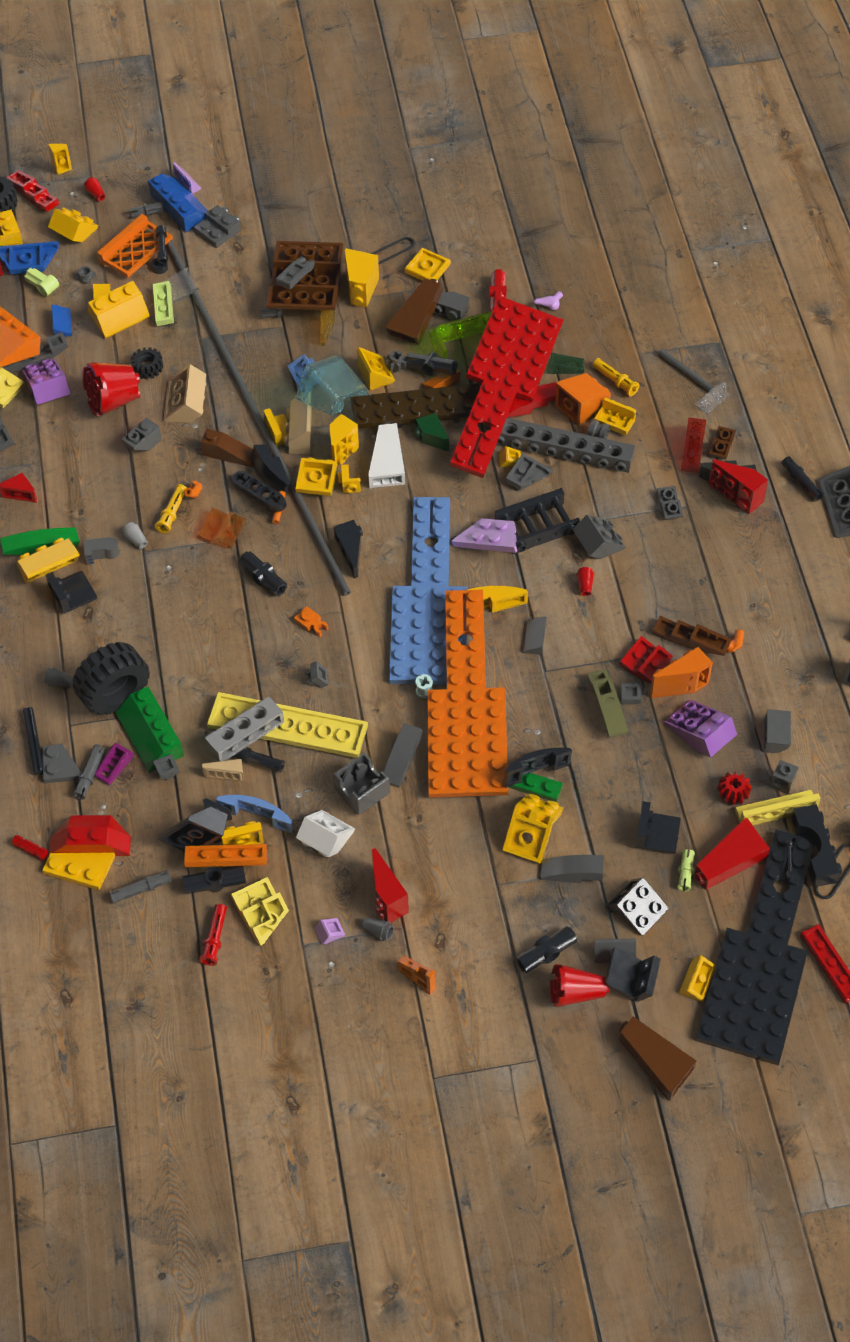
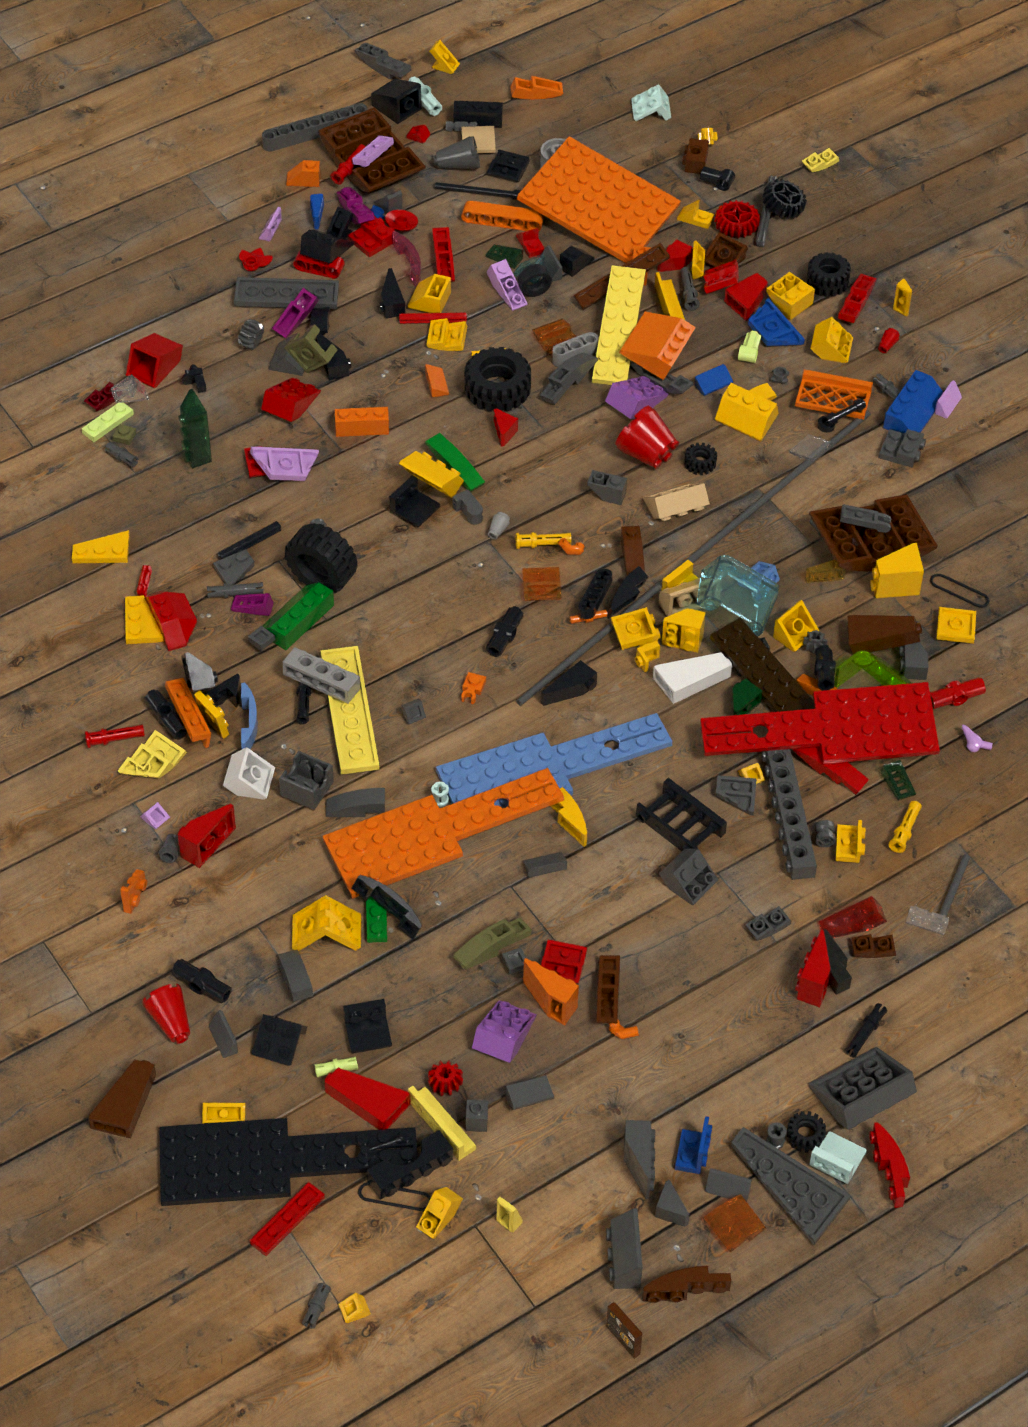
camera: 65 degrees right, 5 degrees down
(141, 886) = (143, 672): dark grey pin -> none
(163, 303) = (778, 442): yellowish green plate -> none
(224, 770) = (281, 682): tan slope -> none
(489, 535) = (639, 785): lavender wing -> none
(580, 397) = (857, 800): orange slope -> none
(585, 580) = (629, 882): red cone -> none
(631, 975) = (199, 1049): black bracket -> none

